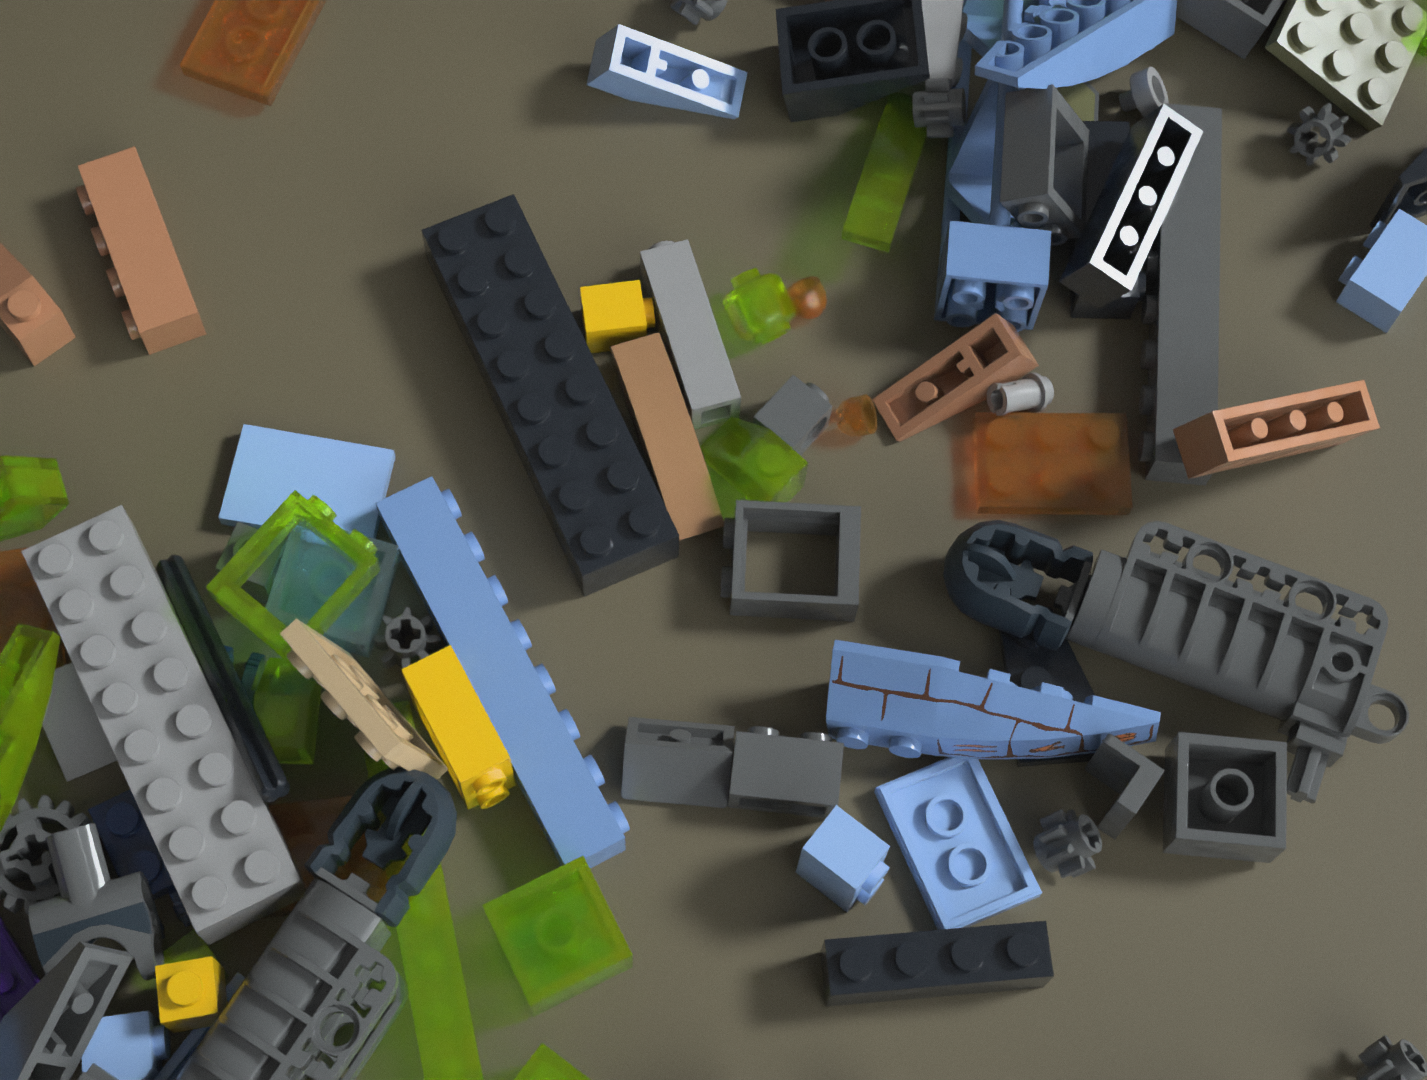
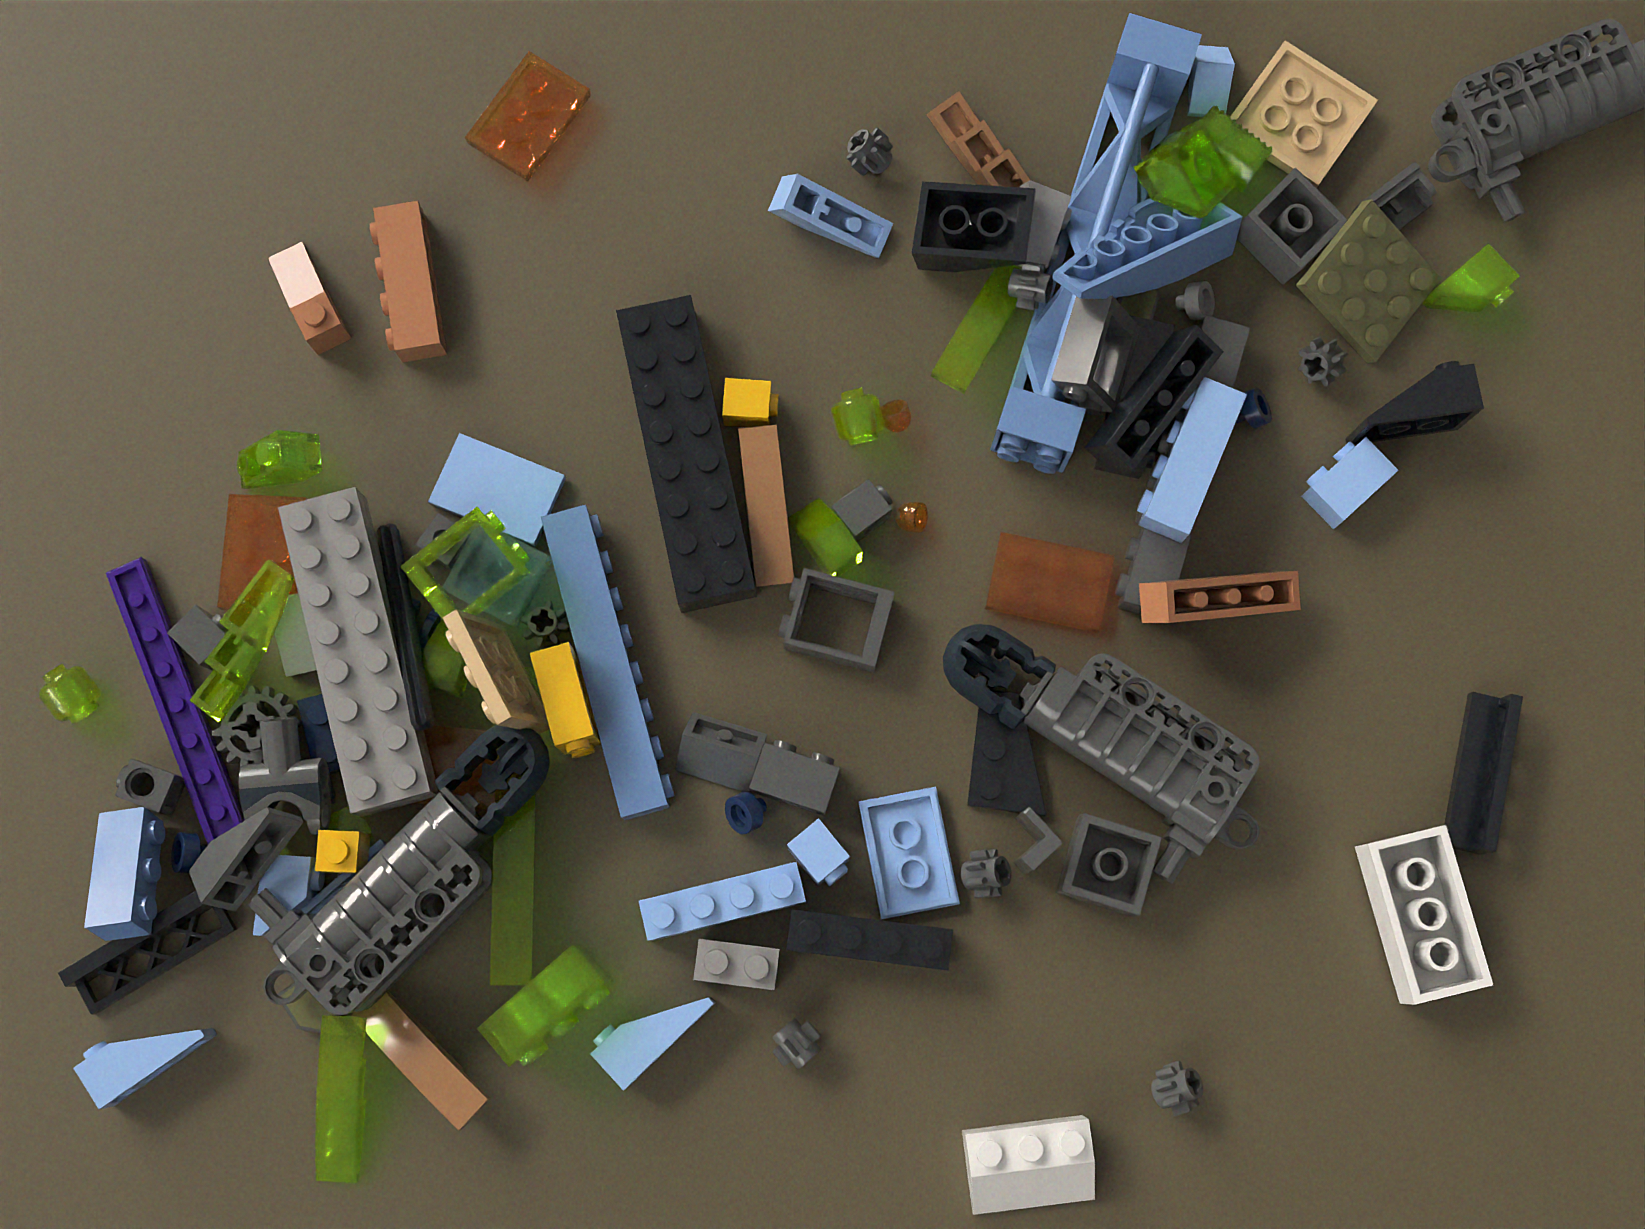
camera: 15 degrees right, 10 degrees up
(558, 936) = (605, 864): clear neon green brick -> none
(690, 333) = (801, 427): light grey brick -> none
(727, 954) = (722, 901): none -> light blue brick
(728, 831) = (745, 812): none -> dark blue tile
(766, 1034) = (736, 964): none -> light grey brick
(931, 708) = (911, 757): medium blue wedge -> none
(955, 378) = (993, 503): nougat slope -> none
(1030, 393) = (1039, 525): light grey pin -> none
(1195, 272) = (1191, 461): none -> light blue brick
(1249, 206) = (1255, 409): none -> dark blue tile

